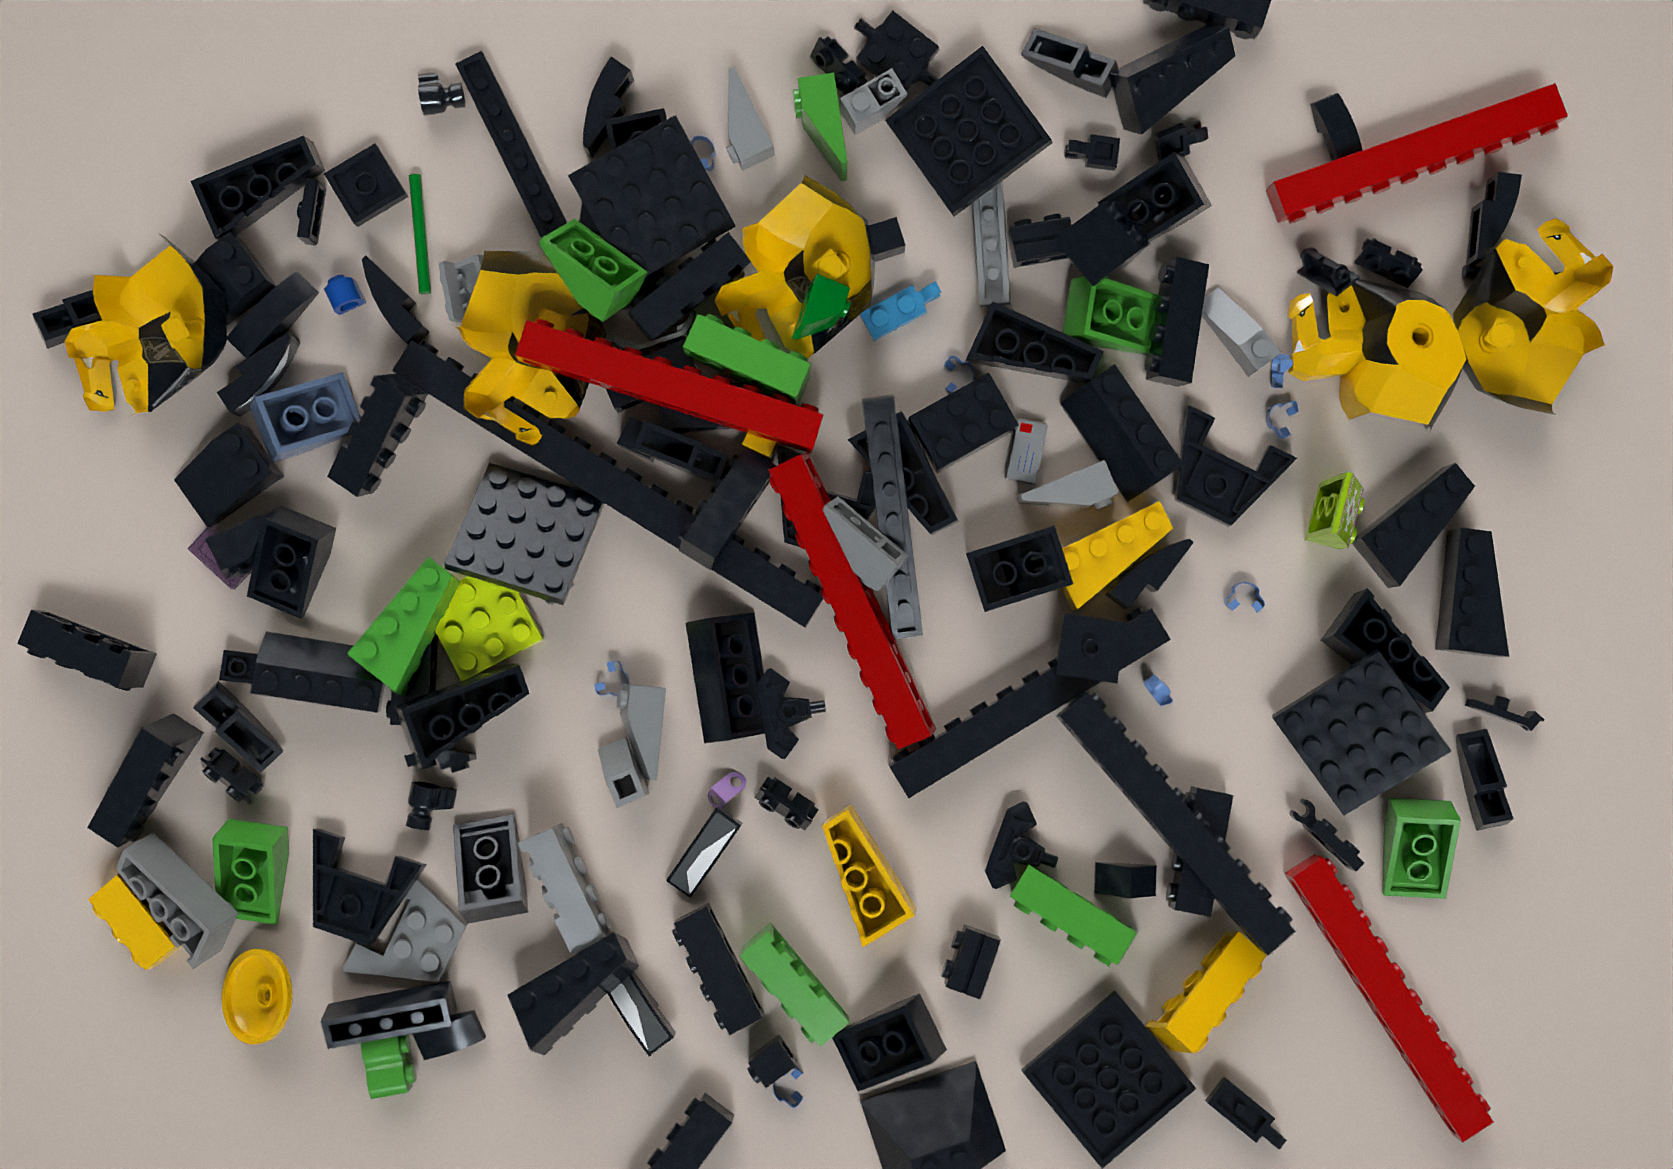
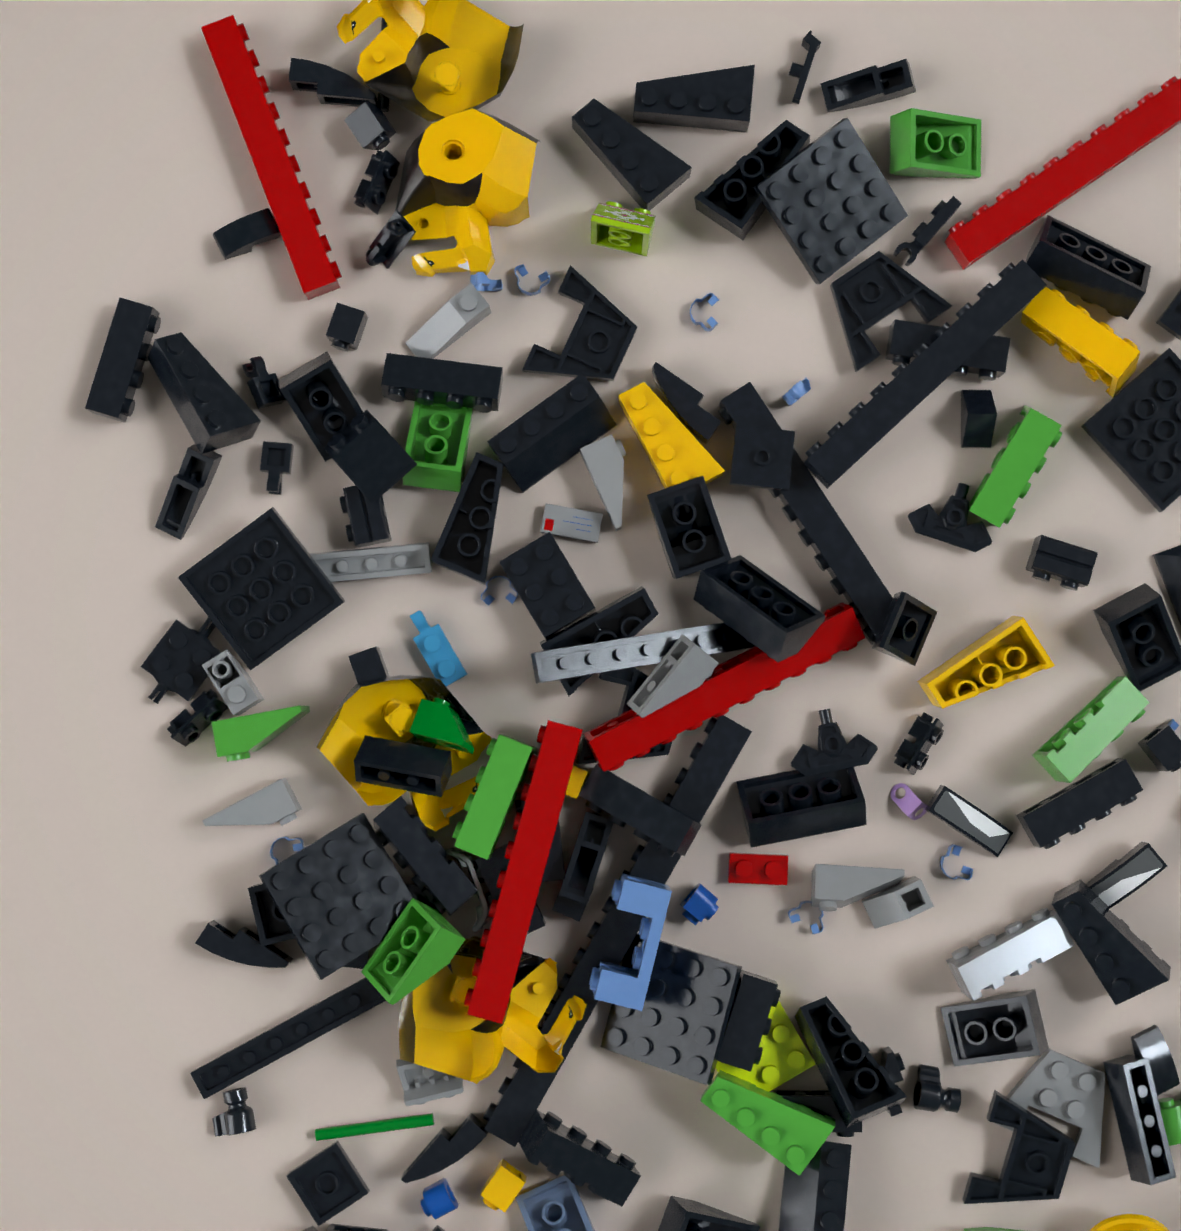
camera: 90 degrees left, 0 degrees up
(354, 359) = (502, 1186): none -> yellow brick
(508, 611) = (748, 1020): none -> black brick
(550, 482) = (623, 984): none -> medium blue plate
(628, 568) = (699, 904): none -> blue plate
(663, 630) = (758, 868): none -> red plate
(673, 838) = (956, 851): none -> medium blue piece
(781, 266) = (403, 766): none -> black brick
(906, 791) = (905, 628): none -> black slope
(933, 637) = (757, 607): none -> black slope
(1236, 226) = (346, 327): none -> black brick
(1260, 774) = (873, 293): none -> black wing
(1284, 1005) = (1088, 268): none -> black slope
(1447, 255) = (370, 126): none -> brick

